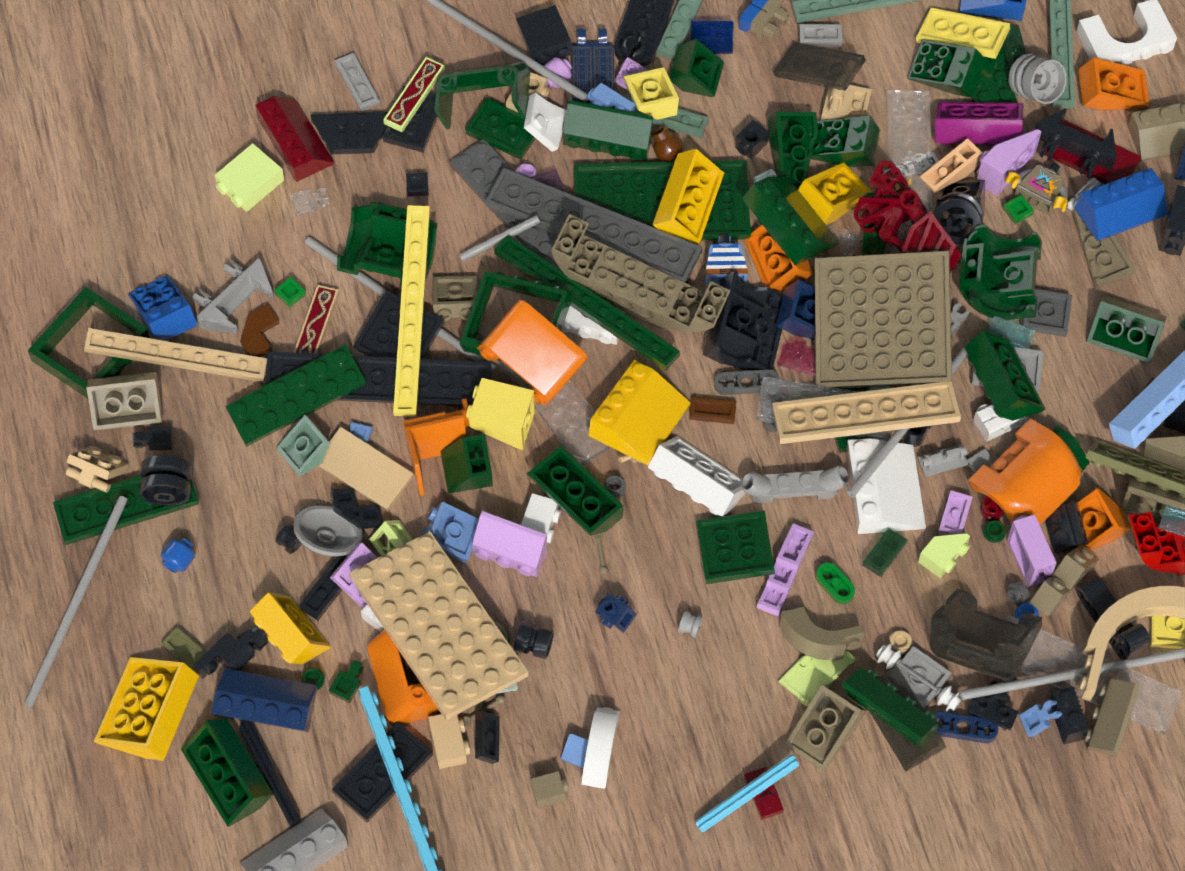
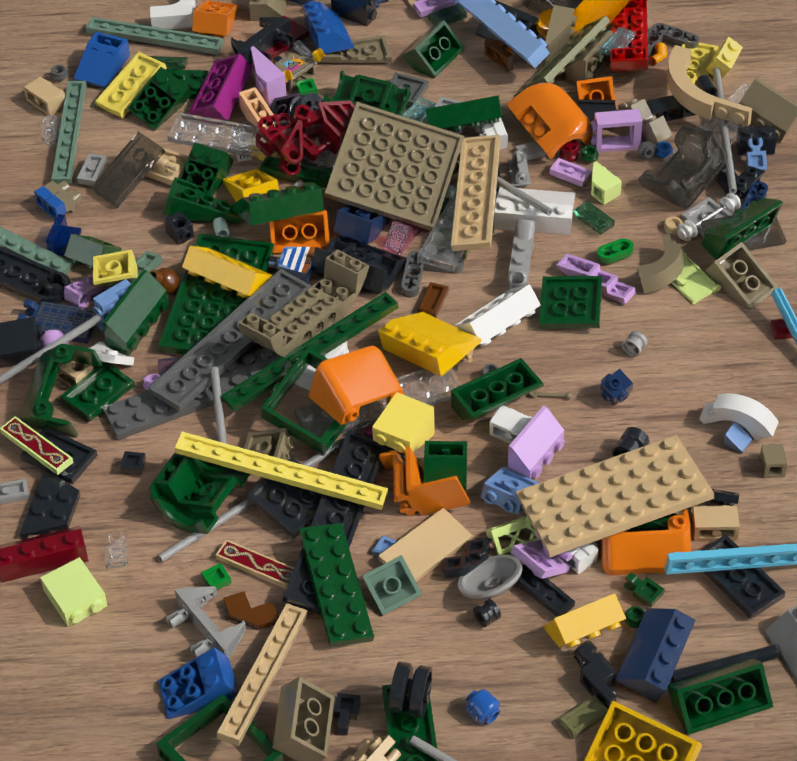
camera: 75 degrees left, 15 degrees down
(1037, 78) = (196, 47): light grey wheel -> none

